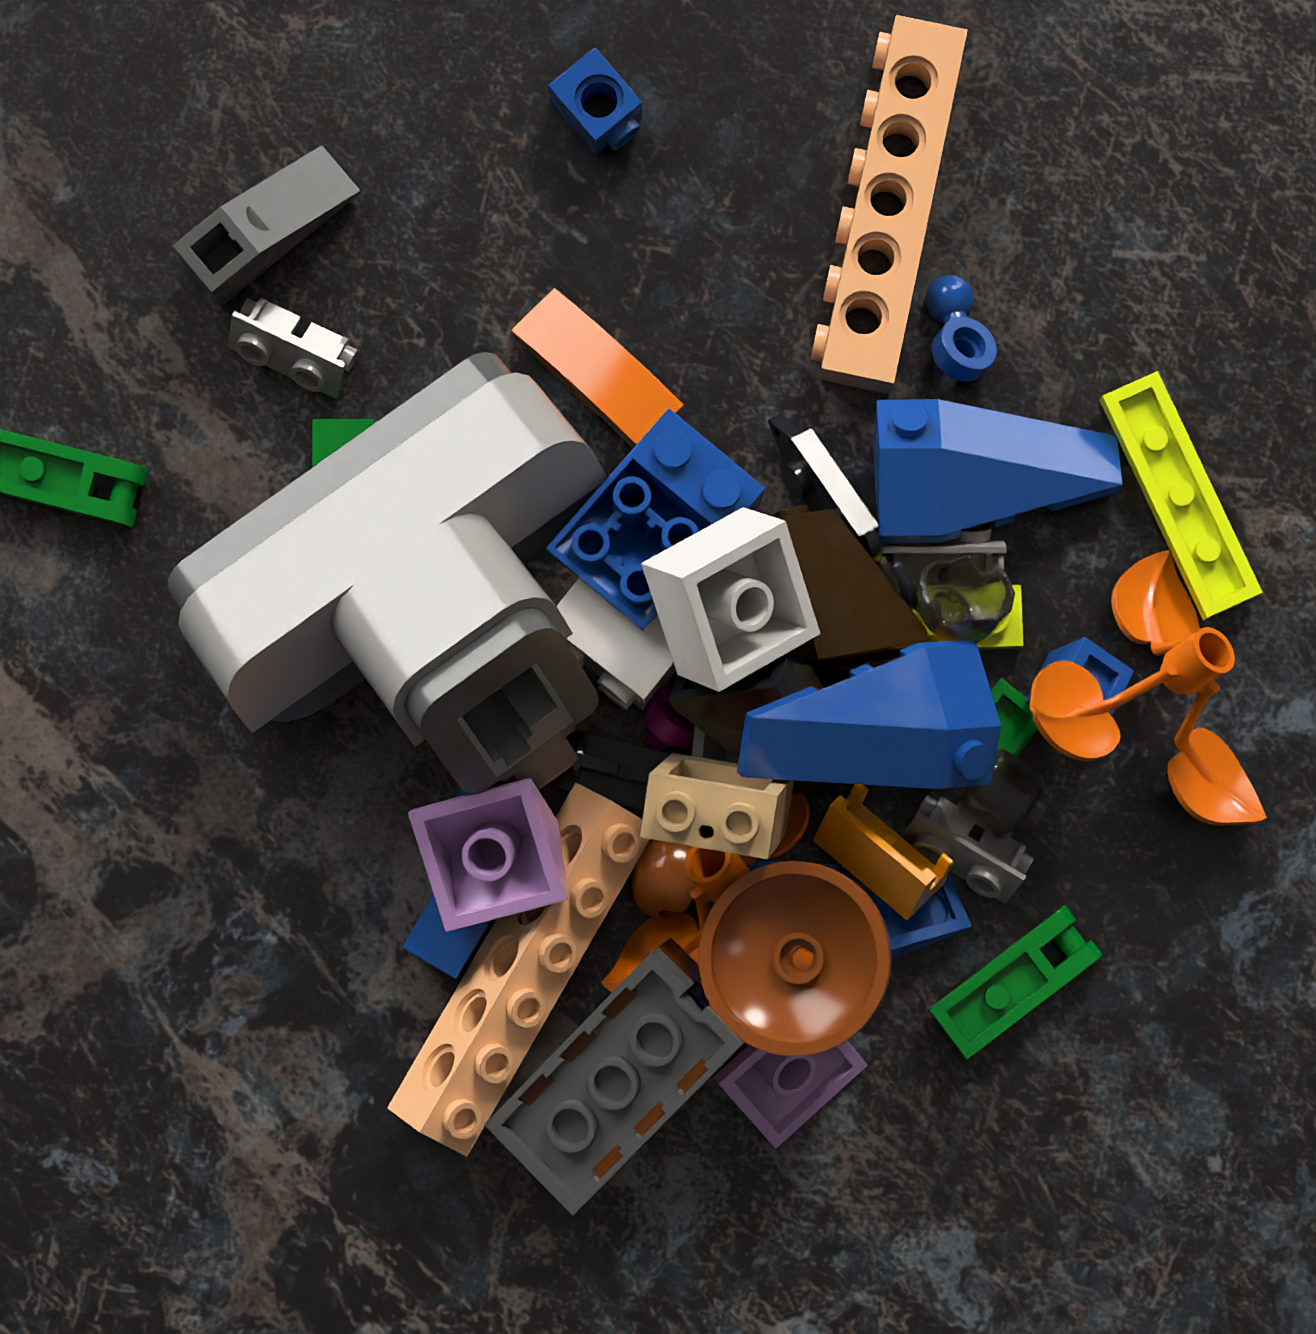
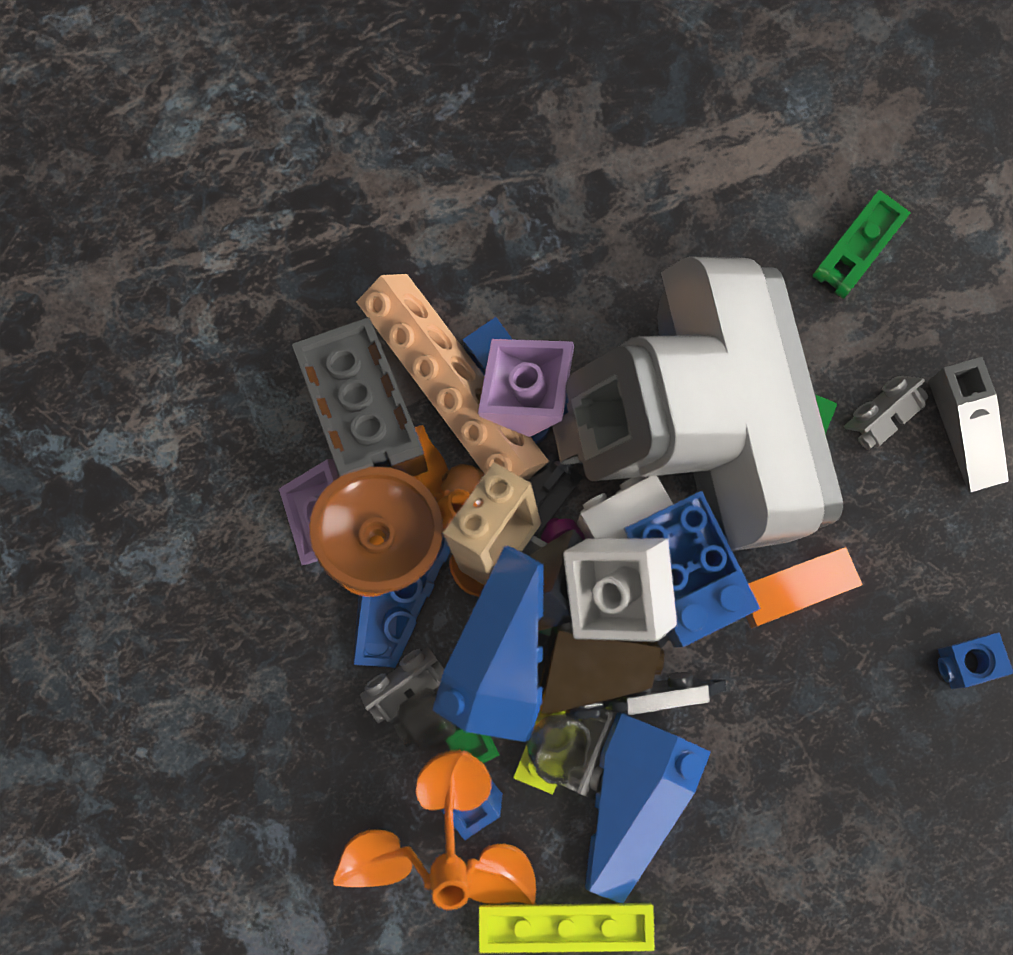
camera: 115 degrees right, 5 degrees down
(879, 855) = (421, 625): light orange hinge -> none
(933, 56) = (924, 896): light nougat brick -> none
(963, 345) = (754, 832): blue plate -> none
(1013, 984) = (307, 675): green plate -> none

